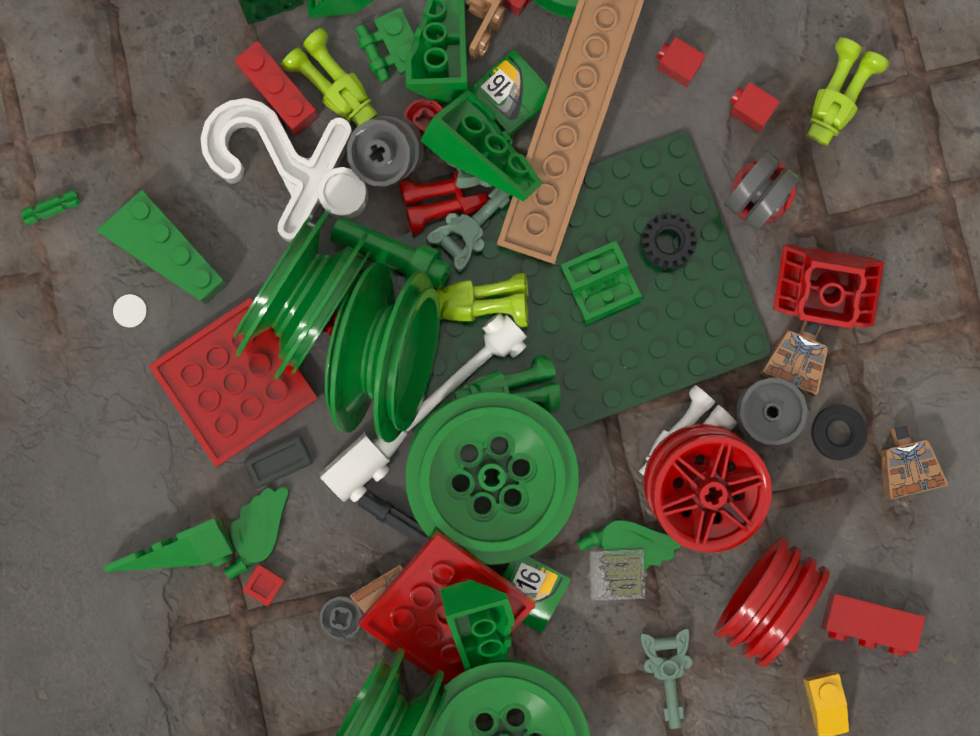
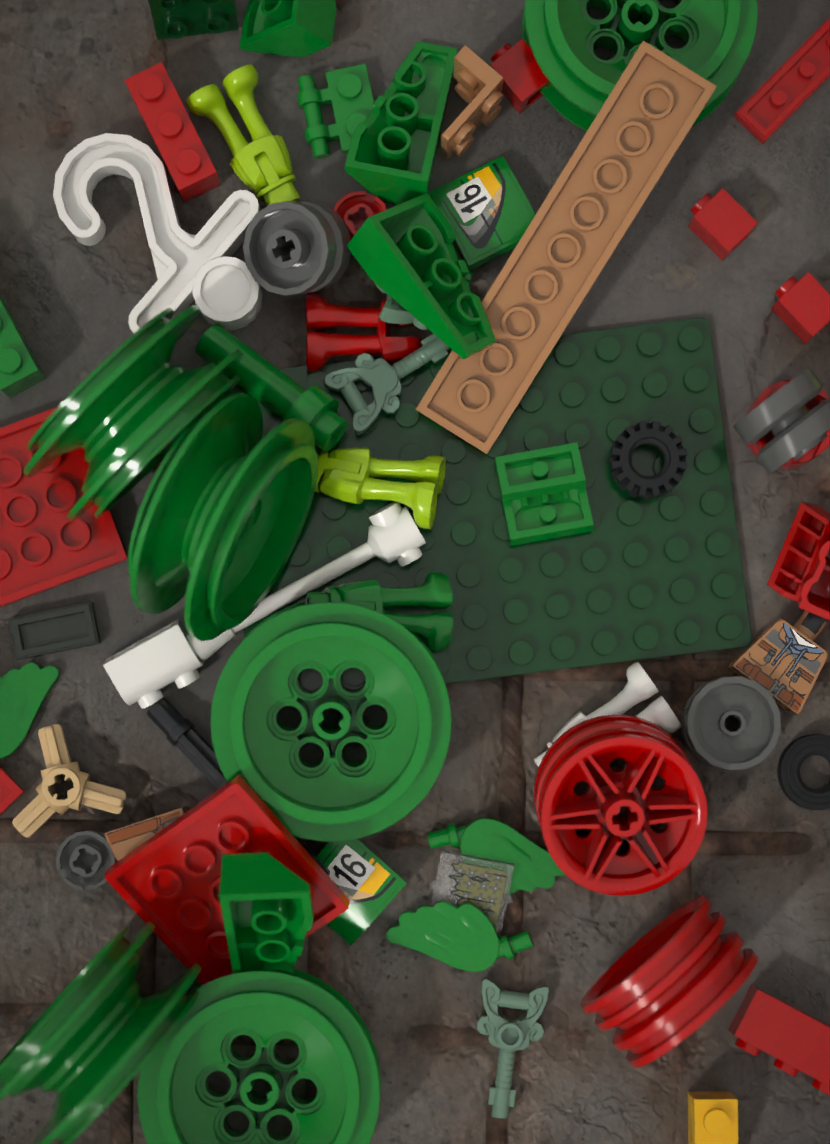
camera: 15 degrees right, 0 degrees up
(328, 570) = (83, 791): none -> tan bush
(614, 608) = (456, 935): none -> green animal

